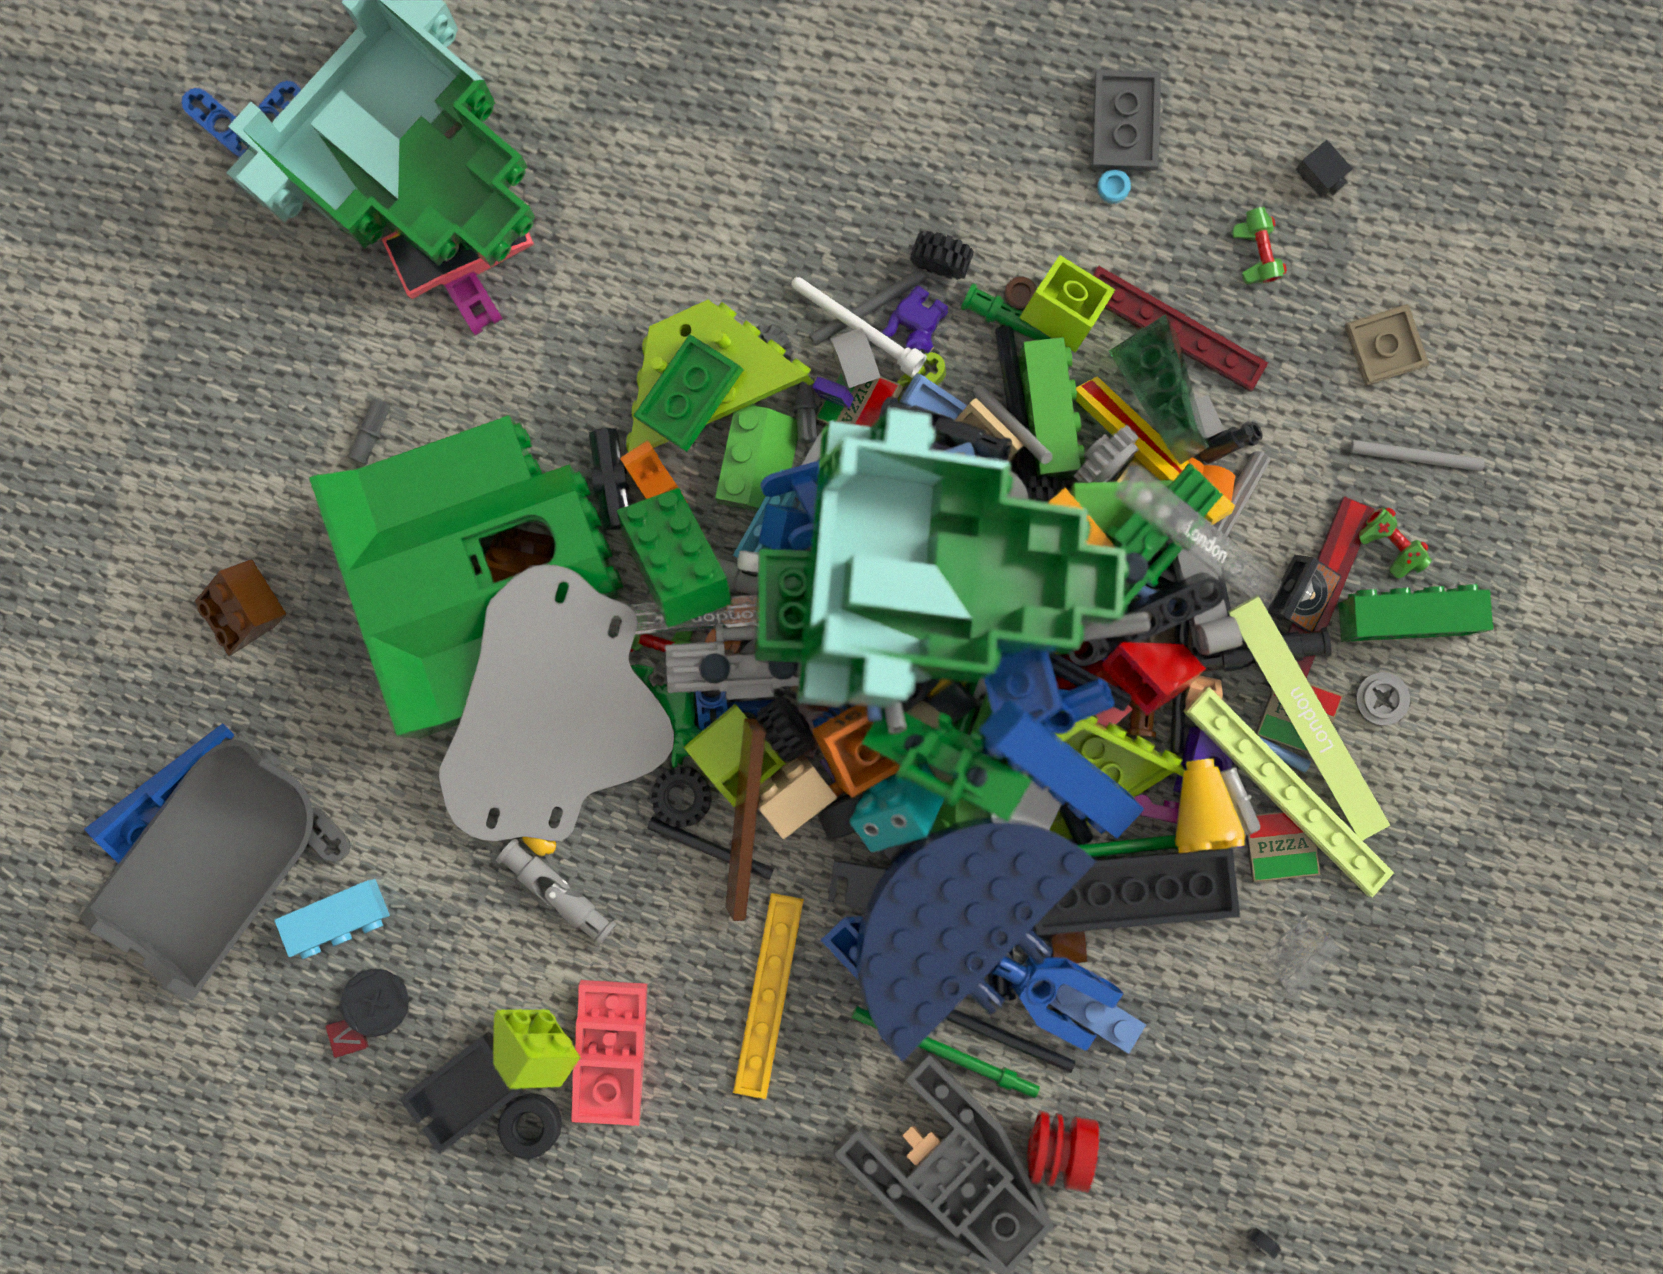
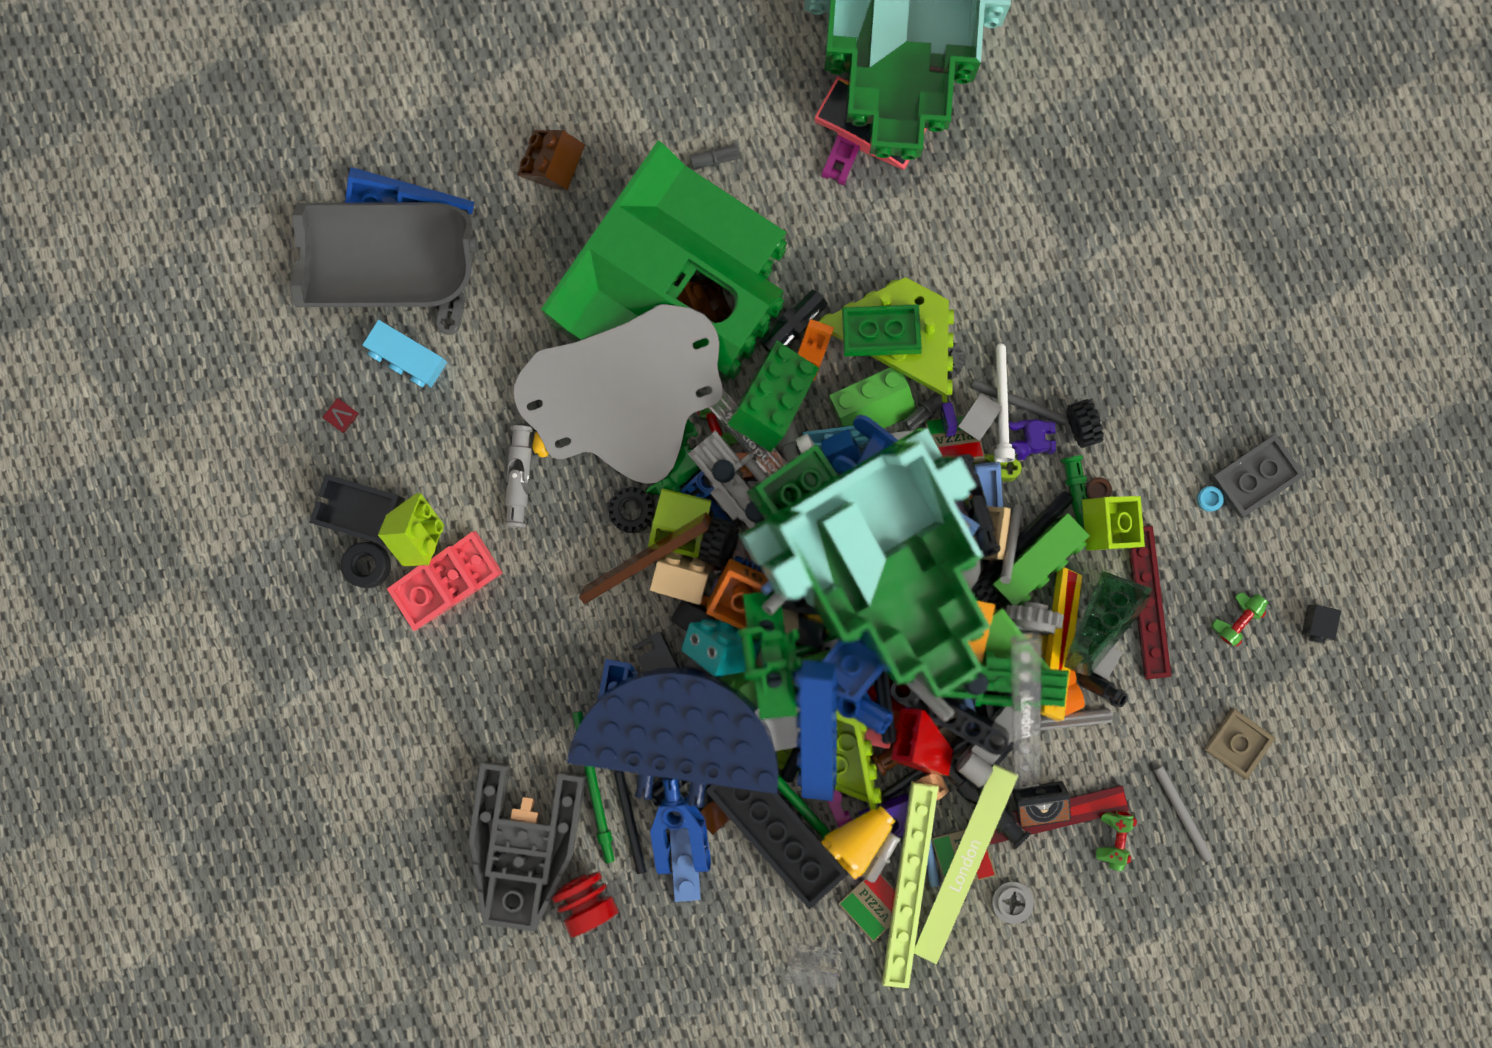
camera: 50 degrees right, 0 degrees up
(374, 1002) = (372, 417): black tile -> none
(703, 845) = (612, 547): black bar -> none
(768, 996) = (549, 652): yellow tile -> none
(1416, 614) = (1080, 885): green brick -> none

